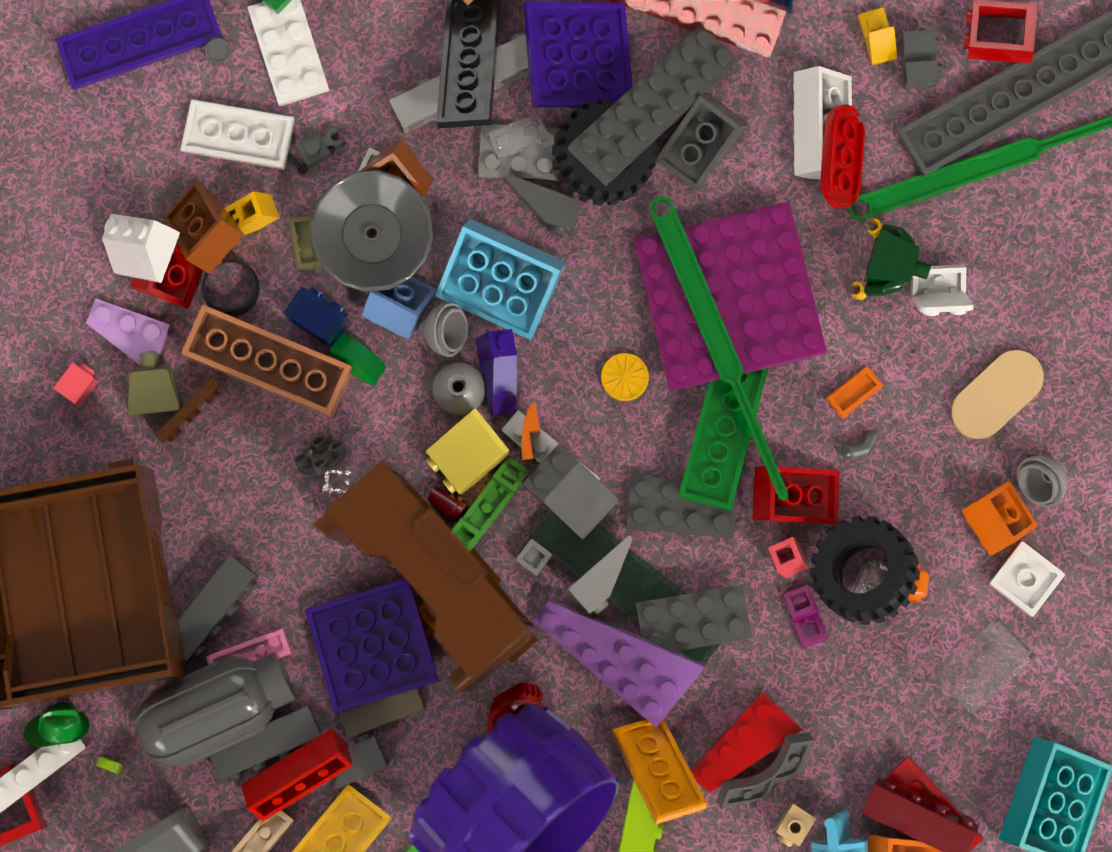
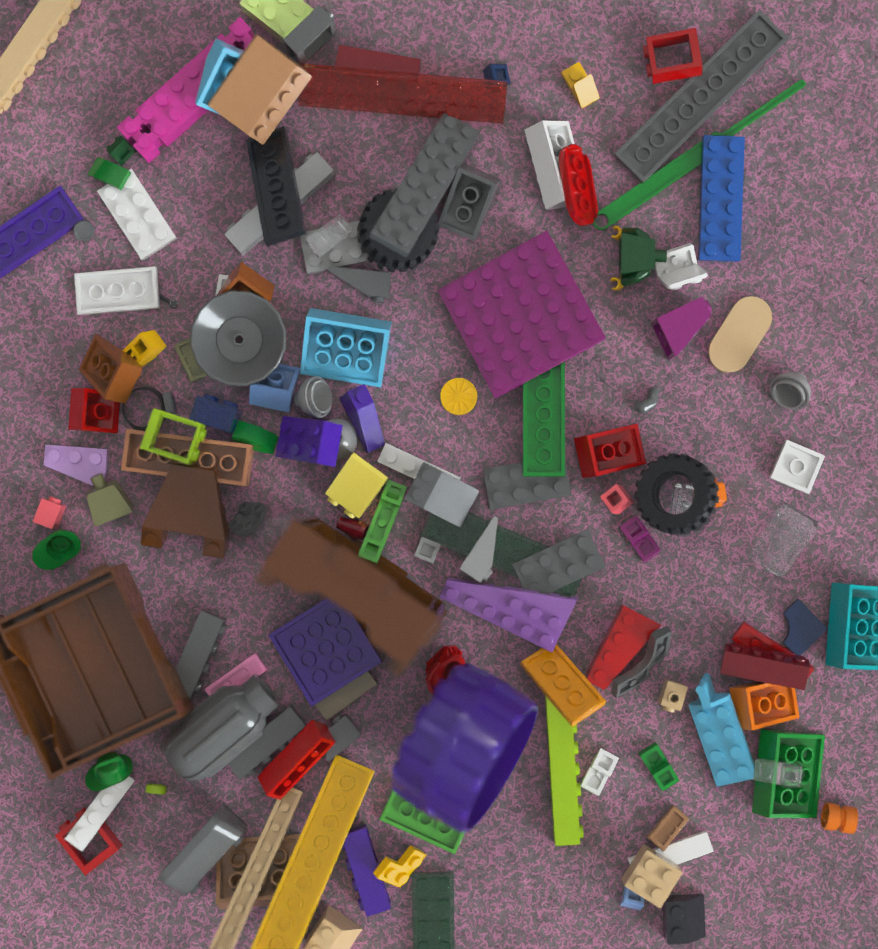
camera: 15 degrees left, 5 degrees up
(72, 431) = (56, 549): none -> green piece
(139, 246) = (66, 398): white slope -> none
(189, 411) = (139, 511): reddish brown plate -> none
(236, 313) = (153, 430): none -> lime window
(253, 419) = (188, 505): none -> reddish brown wedge
(263, 288) = (169, 402): none -> dark grey tile
(316, 148) = (179, 285): dark grey plate -> none
(423, 380) = (309, 440): none -> dark purple brick
(530, 426) = (399, 453): orange slope -> none
(576, 52) = (356, 159): dark purple plate -> none
(711, 327) = (514, 341): green piece -> none
(854, 392) = (632, 361): orange tile -> none
(919, 59) = (616, 94): dark grey brick -> none
(924, 361) = (680, 325): none -> magenta slope
(982, 784) = (803, 628): none -> dark blue tile
(999, 518) = (765, 427): orange slope -> none
(1016, 221) = (721, 198): none -> blue plate

